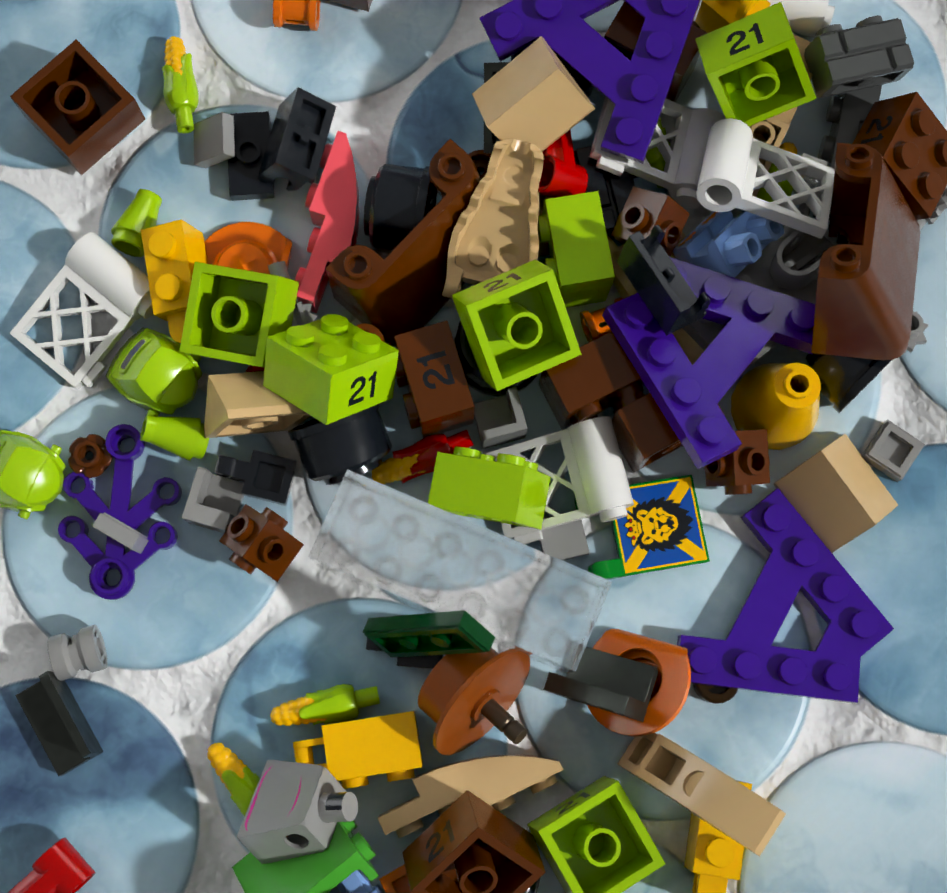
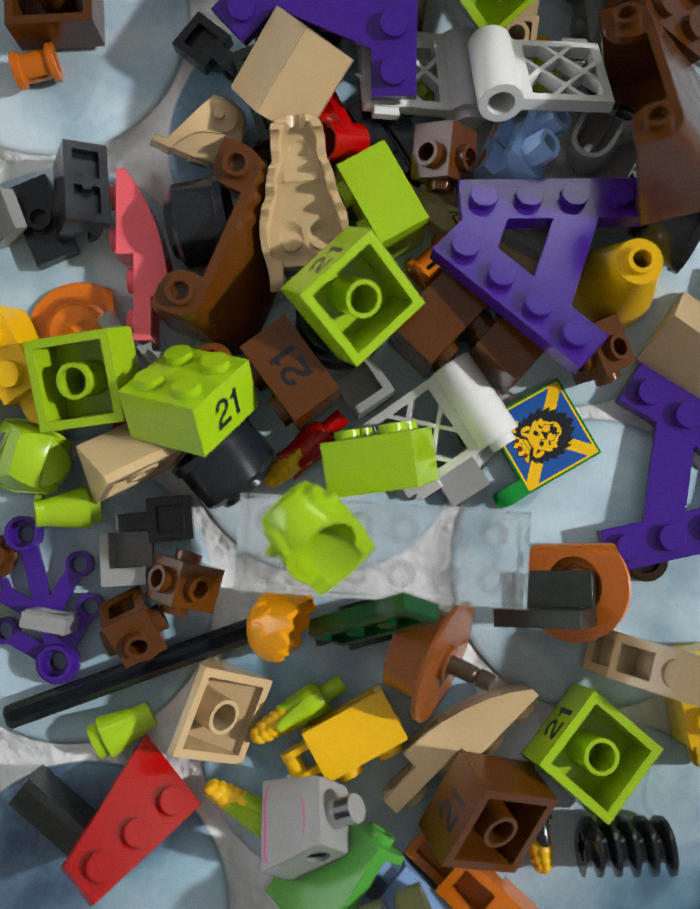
camera: 15 degrees left, 5 degrees up
(77, 652) = (54, 741): light grey wheel -> none
(129, 750) = (133, 819): none -> red wing
(148, 662) = (119, 729): none -> lime cone
(177, 612) = (119, 677): none -> black axle
(197, 567) = (132, 627): none -> reddish brown brick
(250, 681) = (220, 713): none -> tan slope
(338, 612) = (277, 624): none -> light orange hair
(403, 532) = (315, 537): none -> lime helmet
(434, 125) = (203, 132): none -> tan helmet
(464, 45) = (206, 47): none -> black plate
(660, 282) = (477, 206): black hinge -> none

